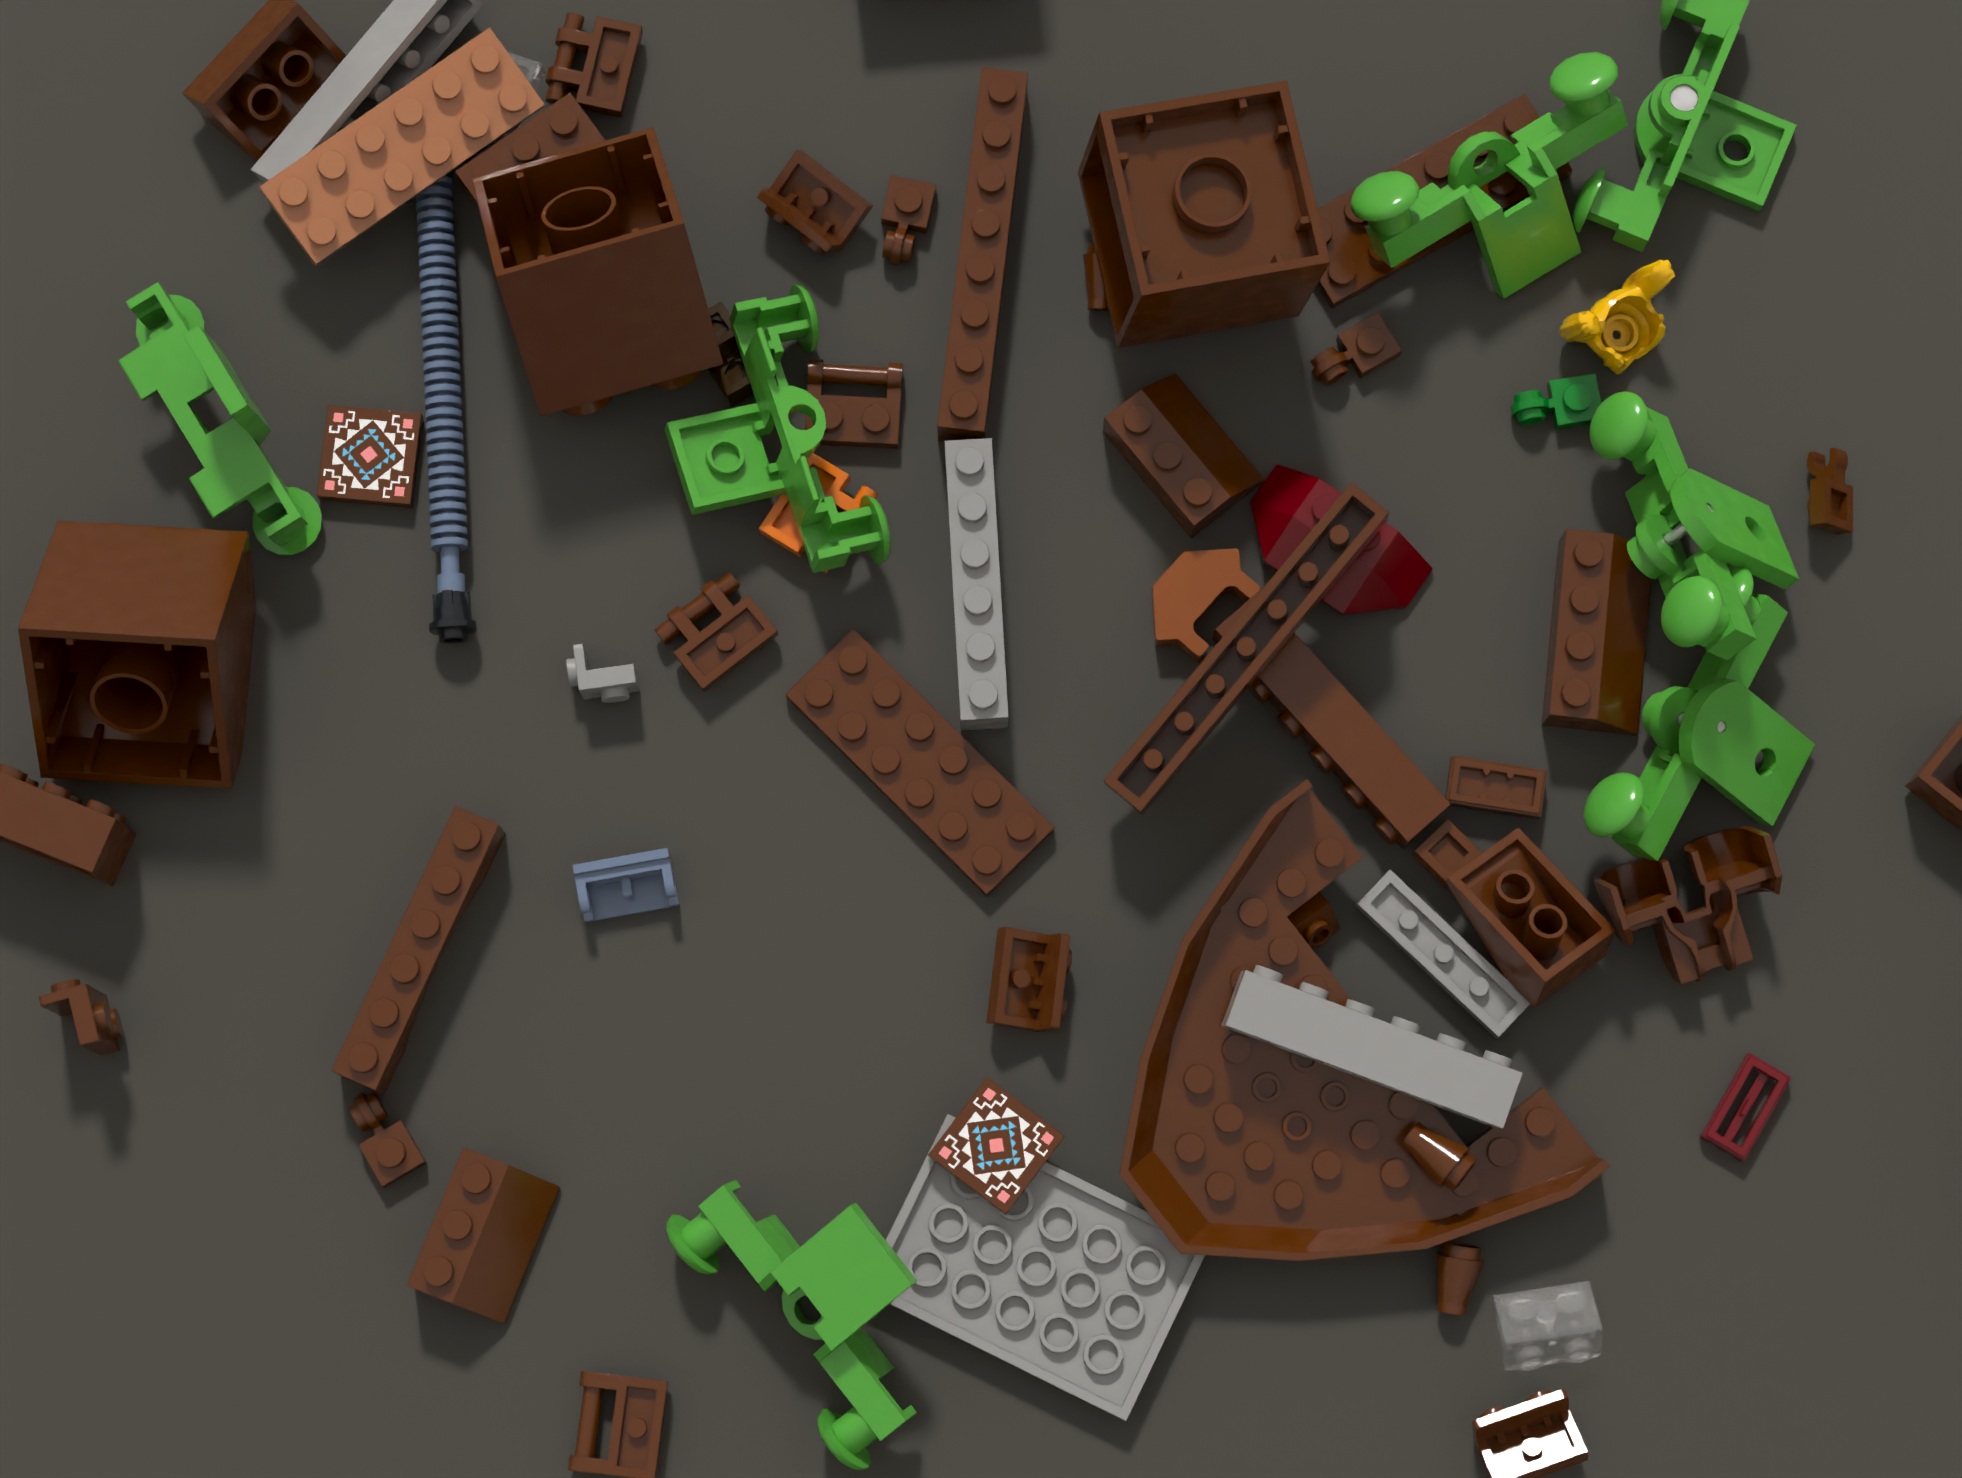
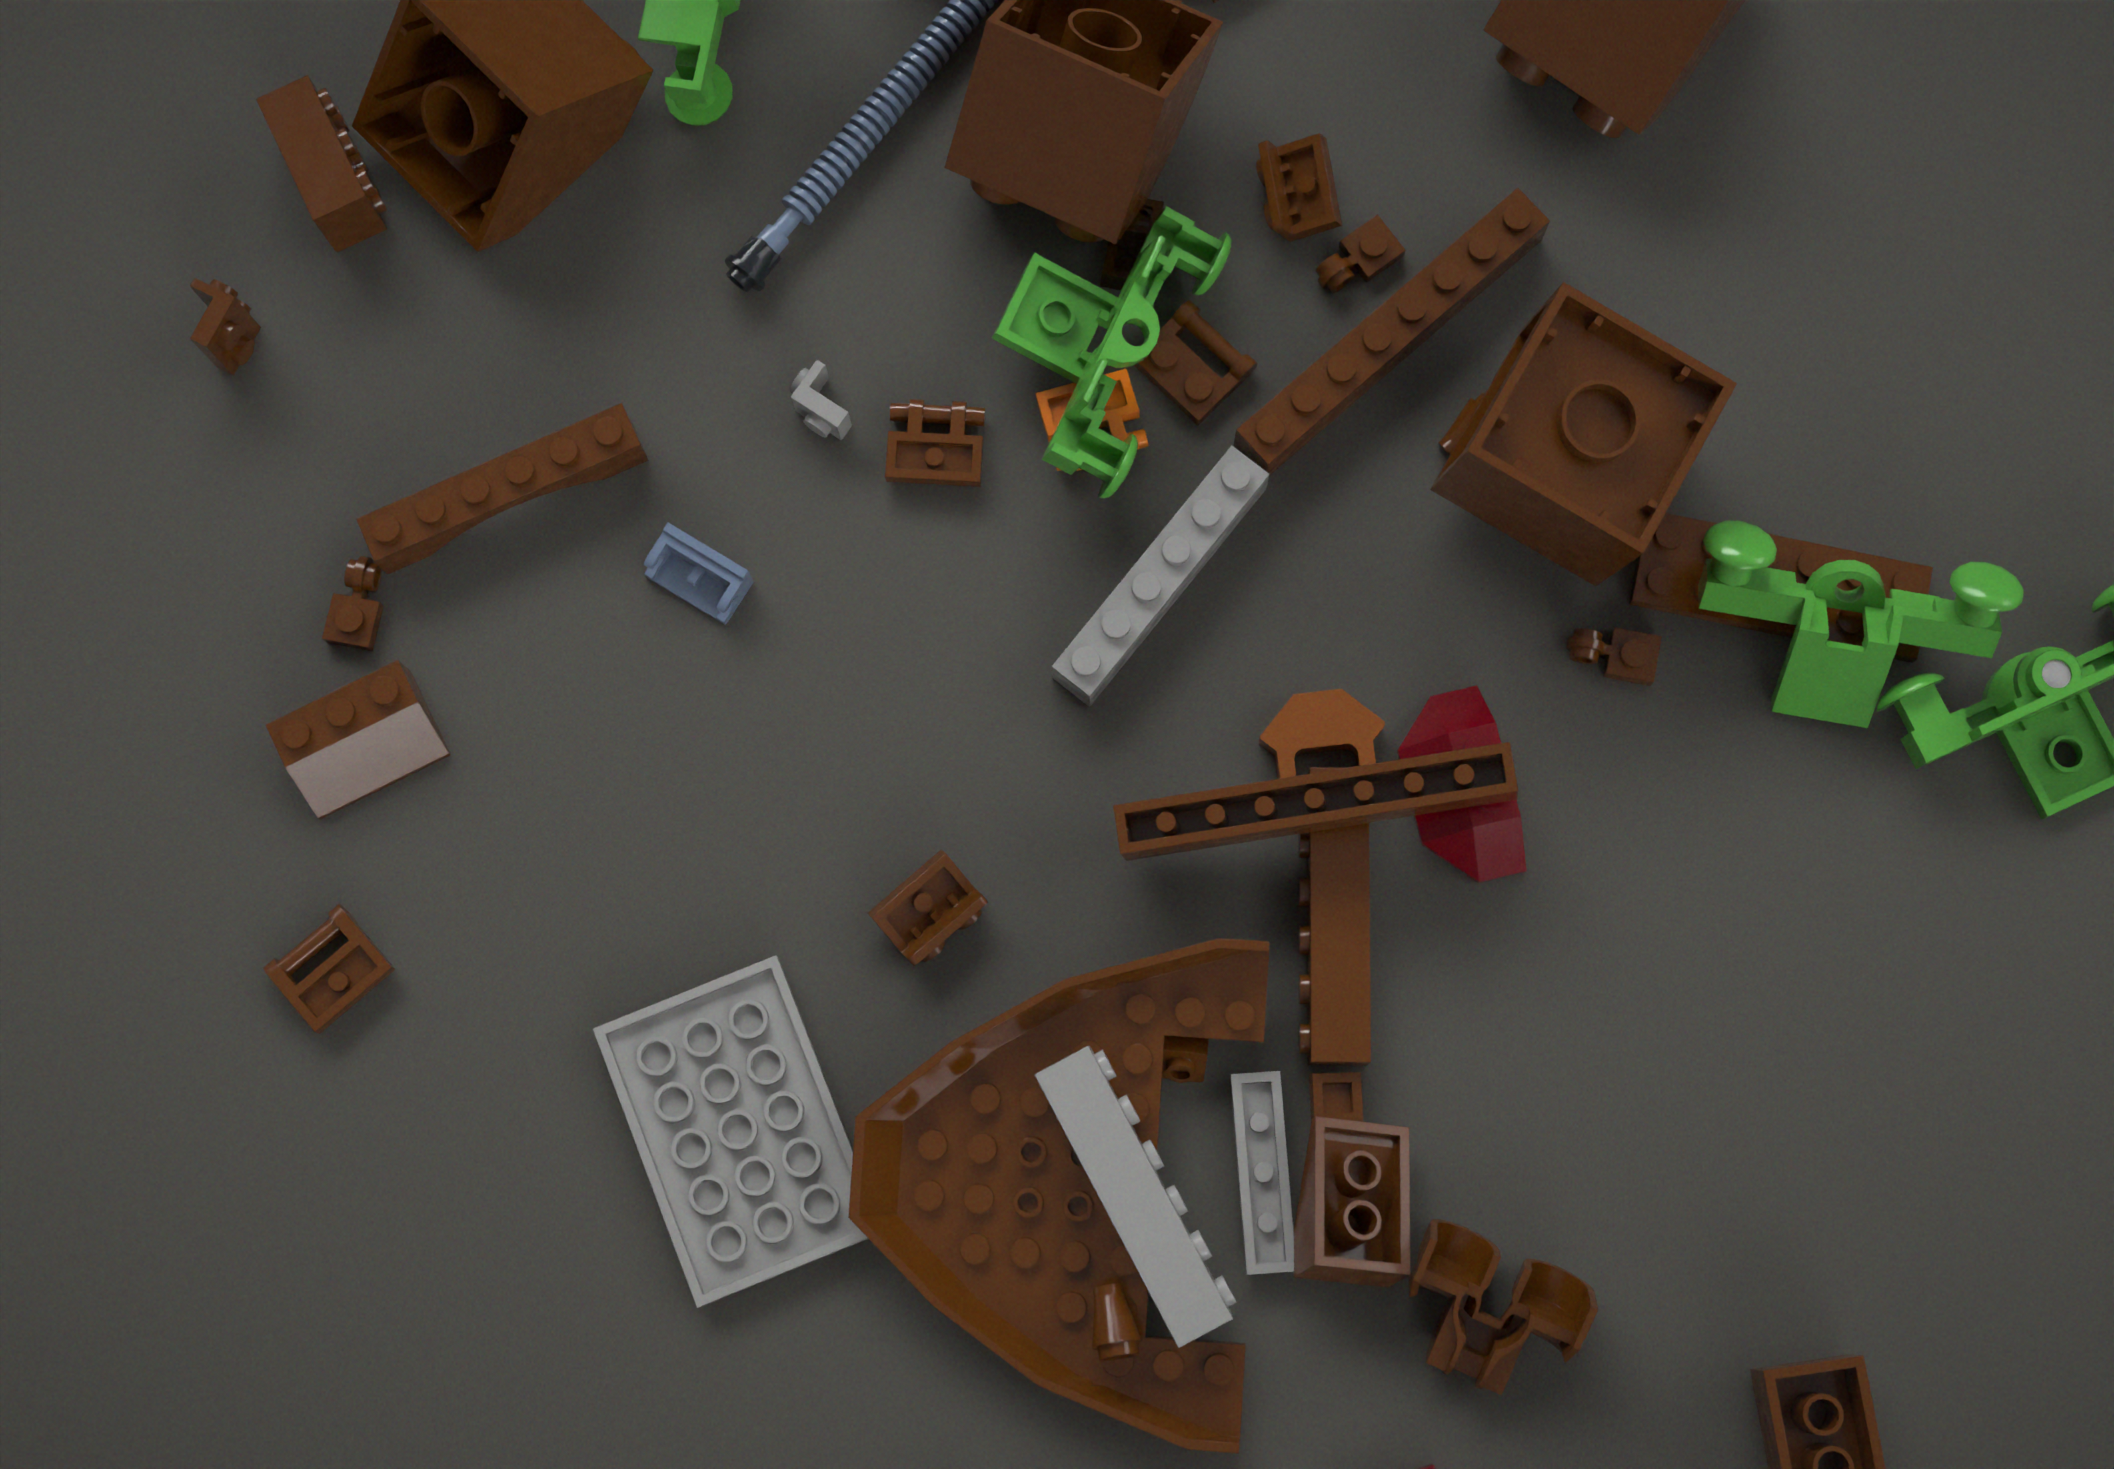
camera: 45 degrees right, 0 degrees up
(370, 456) = (801, 97): reddish brown tile -> none
(847, 1277) = (568, 1009): bright green piece -> none
(920, 762) = (998, 675): reddish brown plate -> none
(996, 1146) = (788, 1011): reddish brown tile -> none
(1181, 453) = (1410, 613): reddish brown slope -> none
(1457, 1274) = (1048, 1428): reddish brown cone -> none
(1495, 787) = (1421, 1081): reddish brown plate -> none
(1570, 401) = (1752, 838): green plate -> none
(1596, 635) = (1611, 1034): reddish brown slope -> none
(1628, 314) = (1860, 807): yellow hair -> none
(1674, 501) = (1781, 1021): bright green piece -> none
(1707, 734) = (1628, 1185): bright green piece -> none
(1830, 498) = (1895, 1088): reddish brown plate -> none

